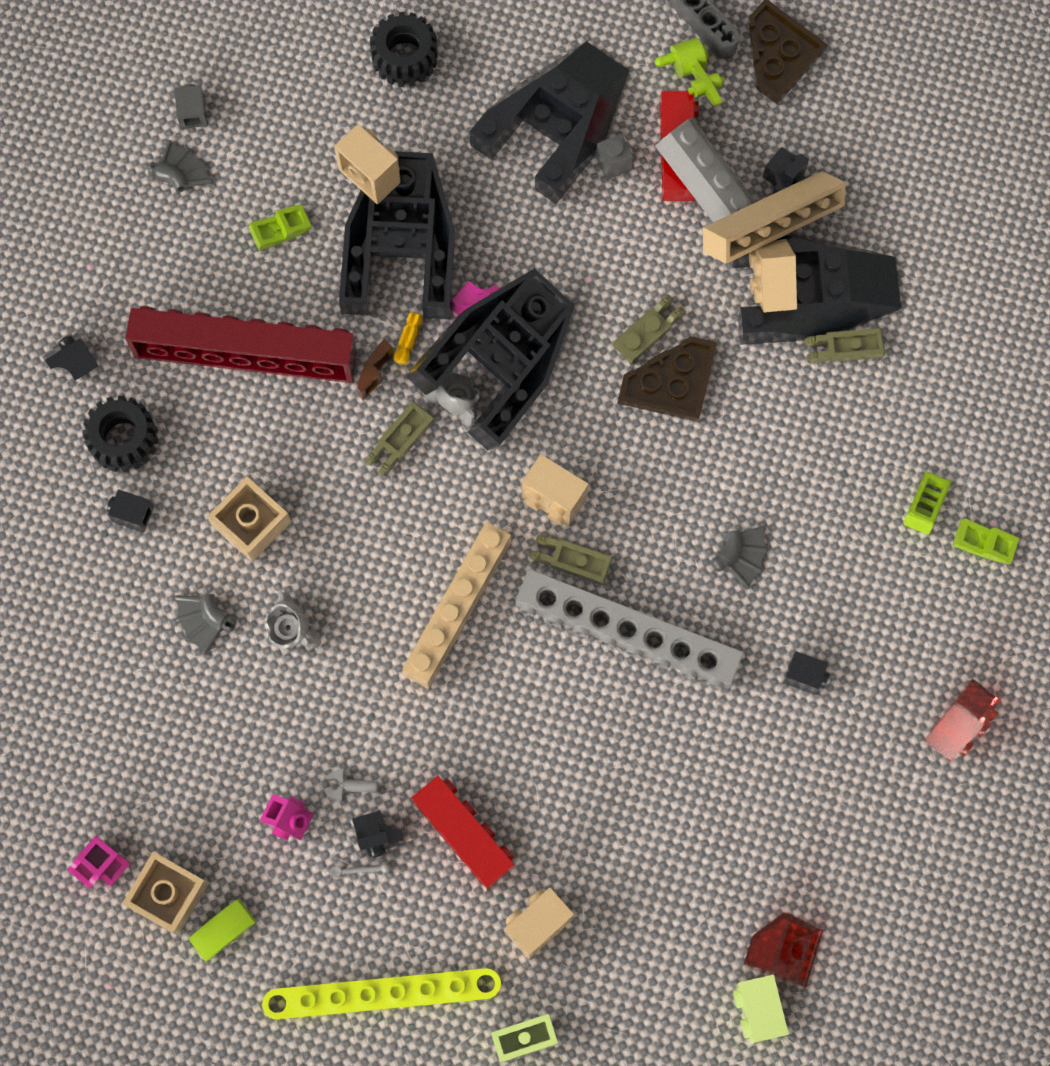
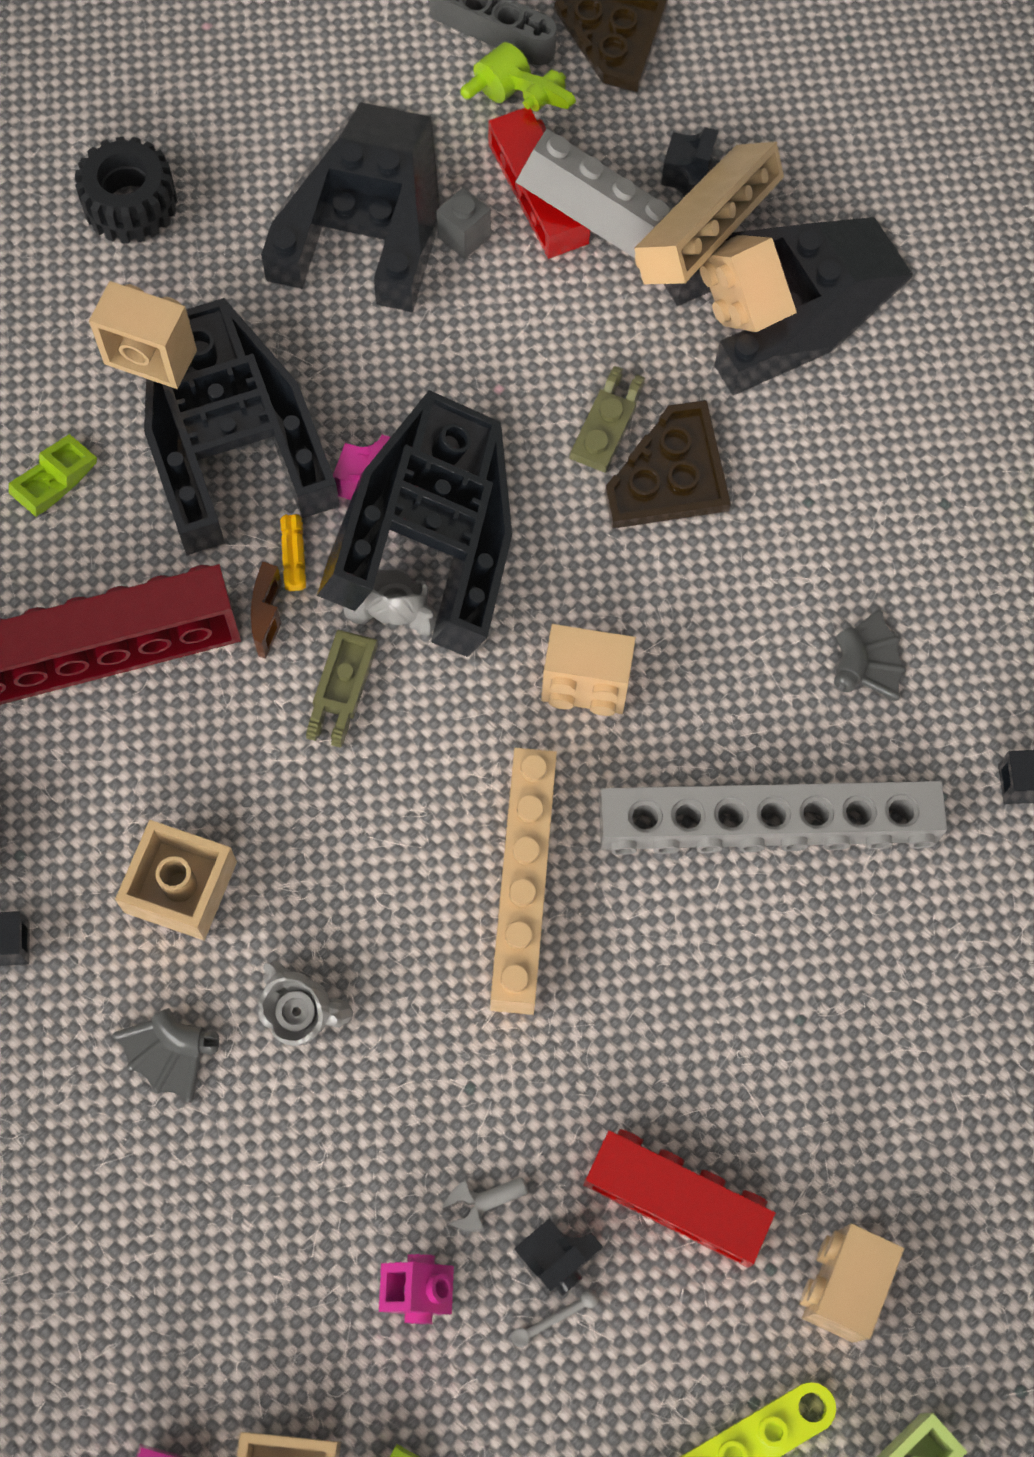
camera: 25 degrees left, 5 degrees down
(574, 559) = (652, 753): olive hinge -> none
(847, 345) = (871, 343): olive hinge -> none

